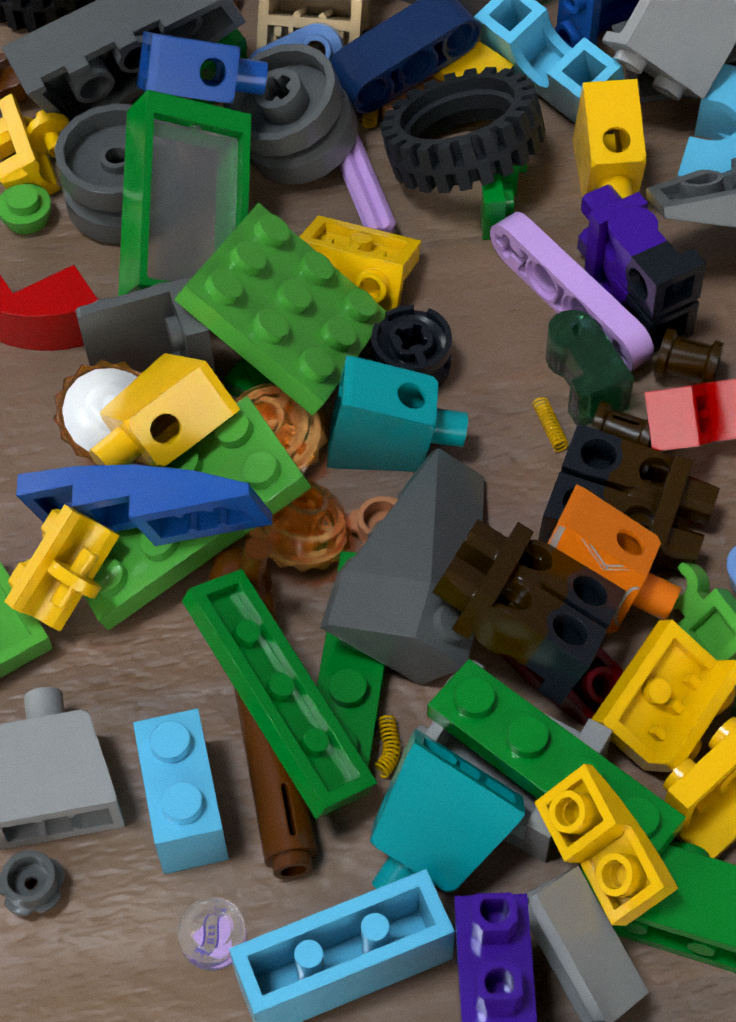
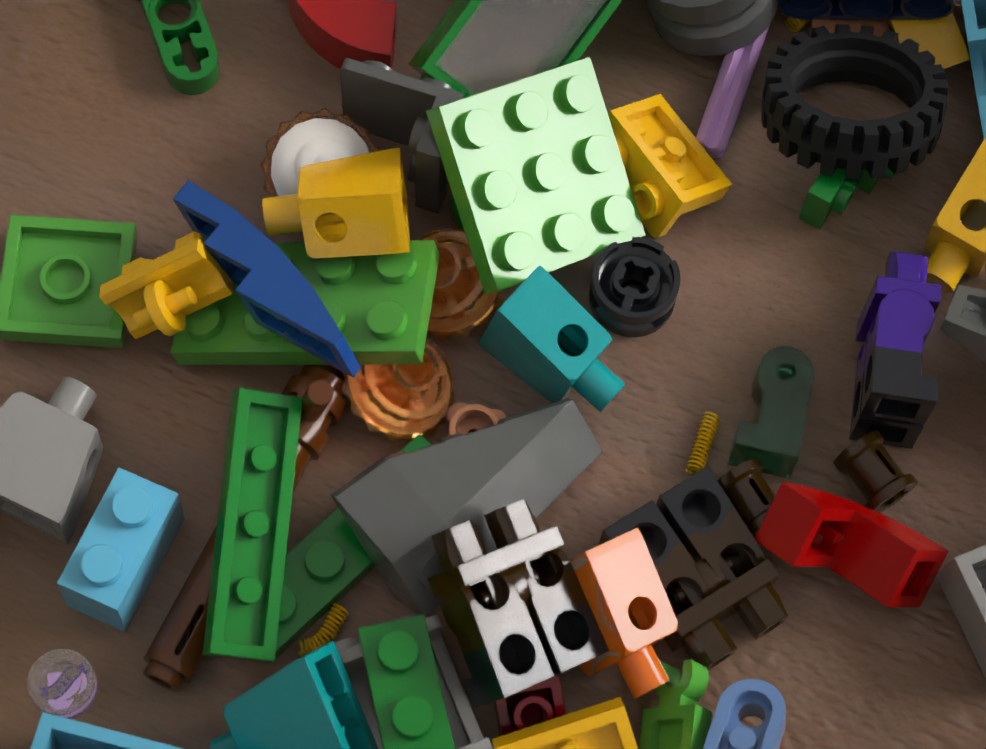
camera: 30 degrees right, 10 degrees up
(568, 286) = (825, 330): lavender beam -> none

